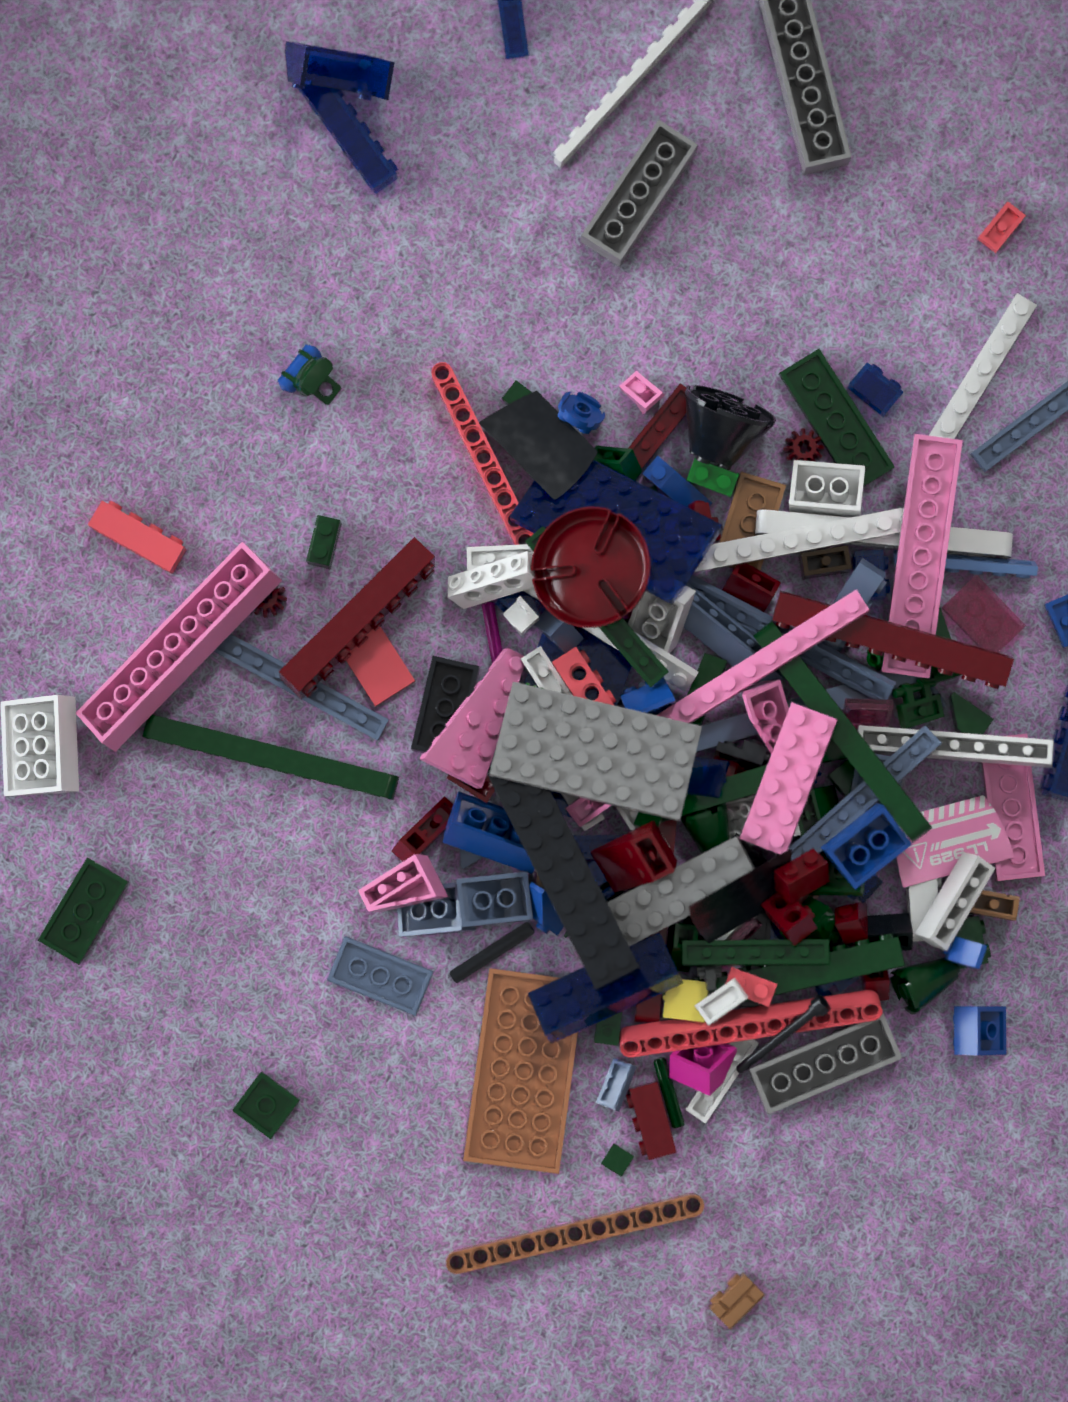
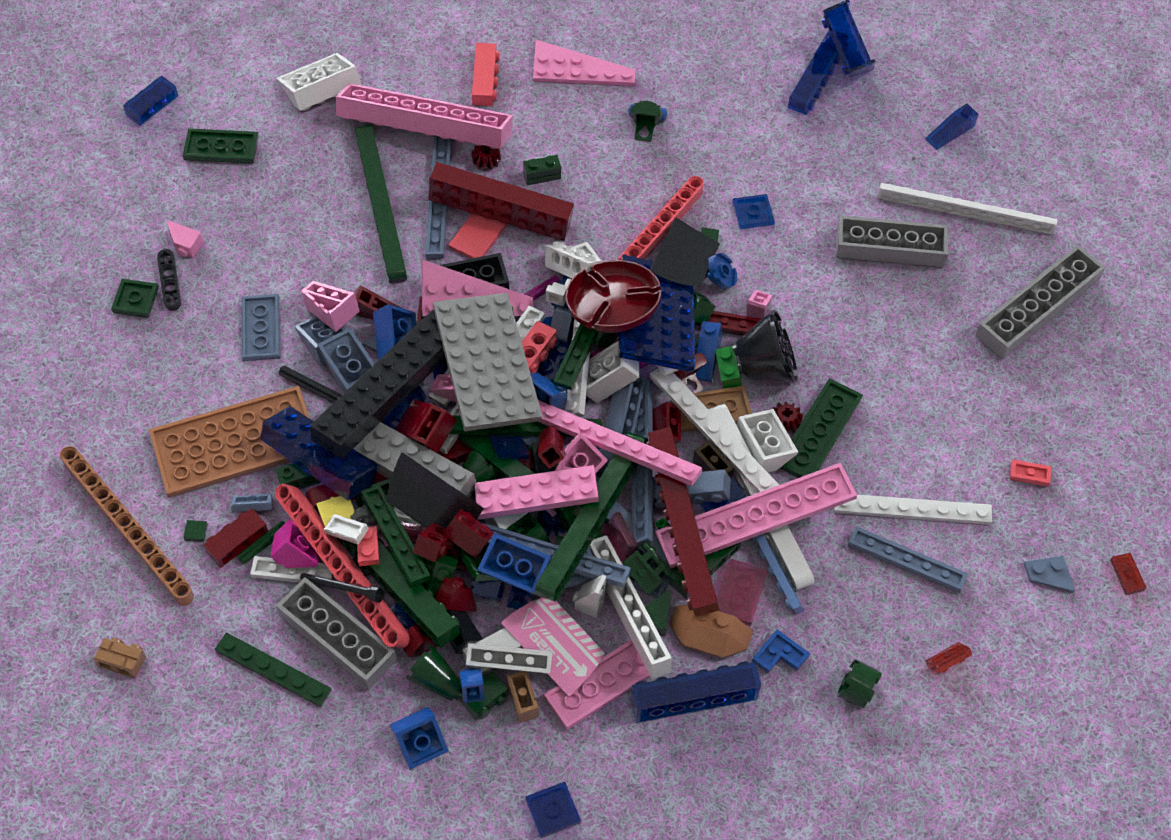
camera: 60 degrees right, 25 degrees down
(174, 426) = (567, 66): none -> bright pink wing
(210, 1014) = (186, 240): none -> bright pink slope
(258, 1051) = (169, 280): none -> black beam
(507, 324) = (753, 211): none -> clear blue tile
(736, 733) = (550, 446): none -> dark red piece
(826, 1146) = (273, 669): none -> dark green plate
(875, 389) = (858, 443): clear blue brick -> none
(921, 779) = (591, 597): none -> white slope
(1026, 675) = (711, 633): none -> nougat wedge

